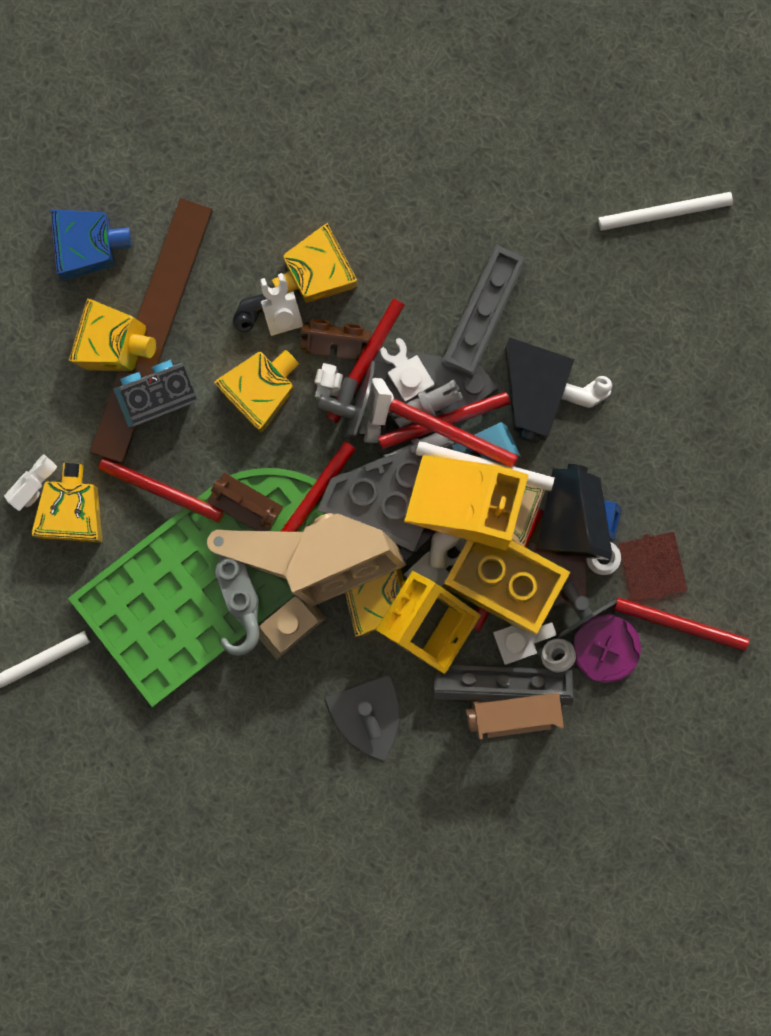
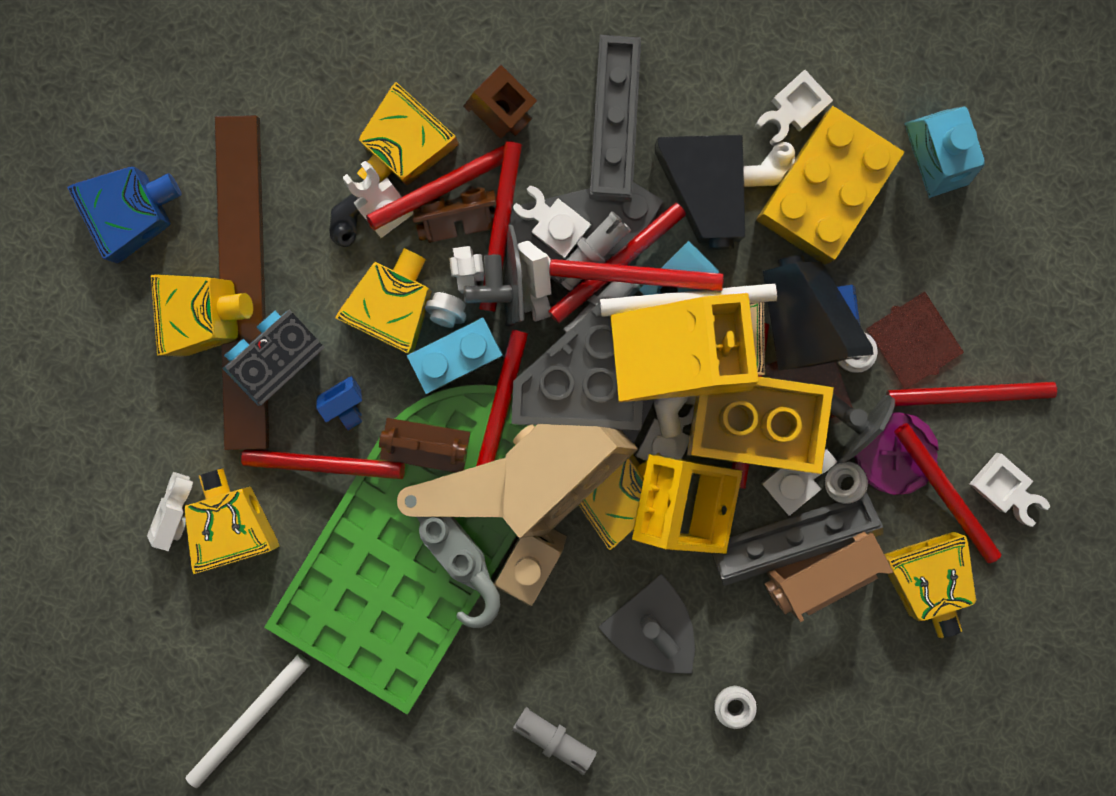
camera: 15 degrees left, 5 degrees up
(193, 447) = (341, 402): none -> blue tile
(257, 771) = (554, 741): none -> light grey pin
(294, 445) = (455, 356): none -> medium azure brick
(300, 408) = (446, 309): none -> white plate
(327, 313) = (436, 188): none -> red piece
(408, 261) = (503, 91): none -> reddish brown brick
(416, 807) = (744, 716): none -> white plate
(597, 756) = (934, 580): none -> yellow torso
(627, 352) = (797, 106): none -> white plate
(627, 422) = (830, 186): none -> yellow brick
(634, 693) = (947, 493): none -> red piece
(679, 704) = (1005, 487): none -> white plate
(725, 429) = (946, 150): none -> medium azure torso

